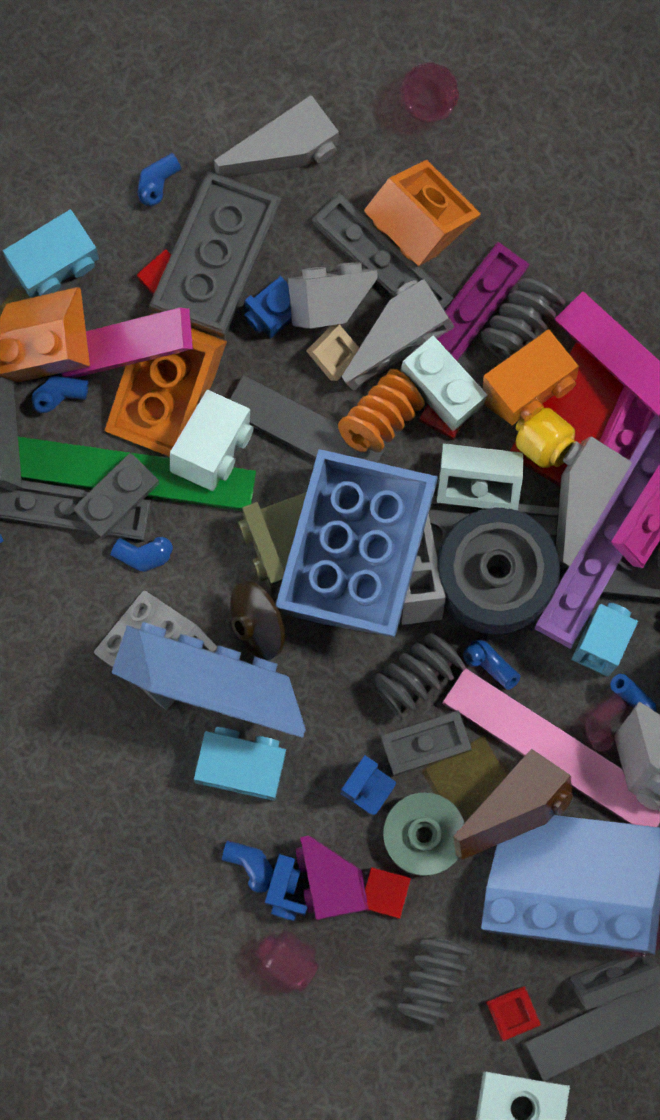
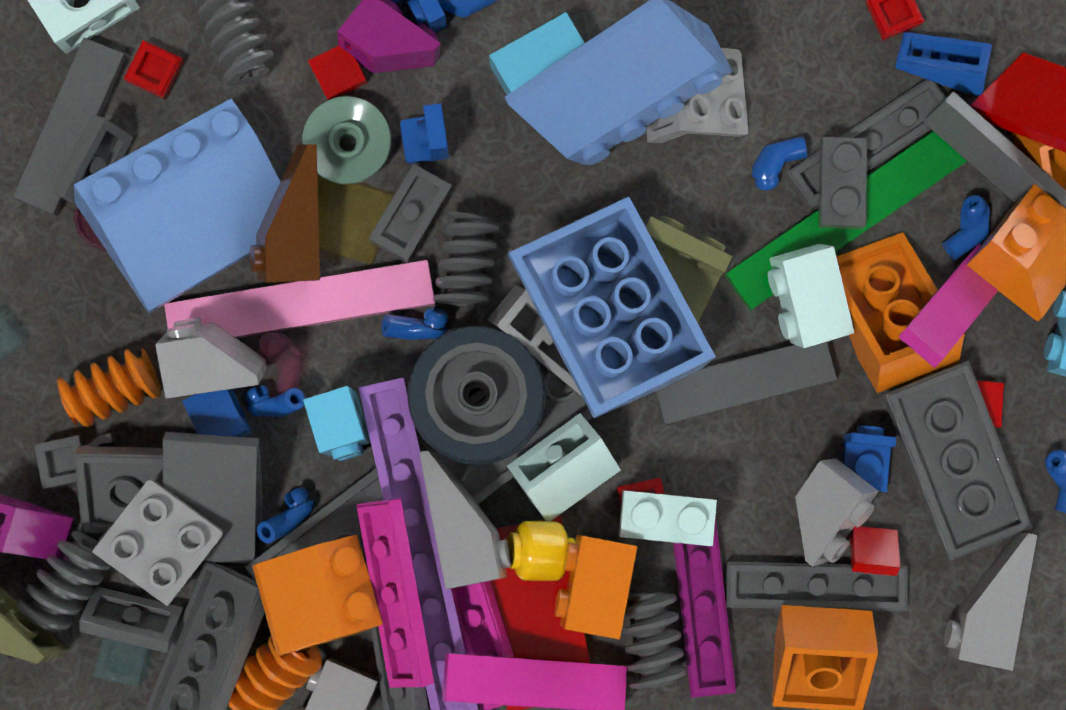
camera: 140 degrees right, 5 degrees up
(257, 620) = (635, 180): dark brown dish -> none
(324, 245) = (874, 551): none -> red tile
(333, 351) = (781, 467): tan plate -> none
(381, 413) = (695, 448): orange piece -> none
(398, 332) = (744, 533): light grey slope -> none

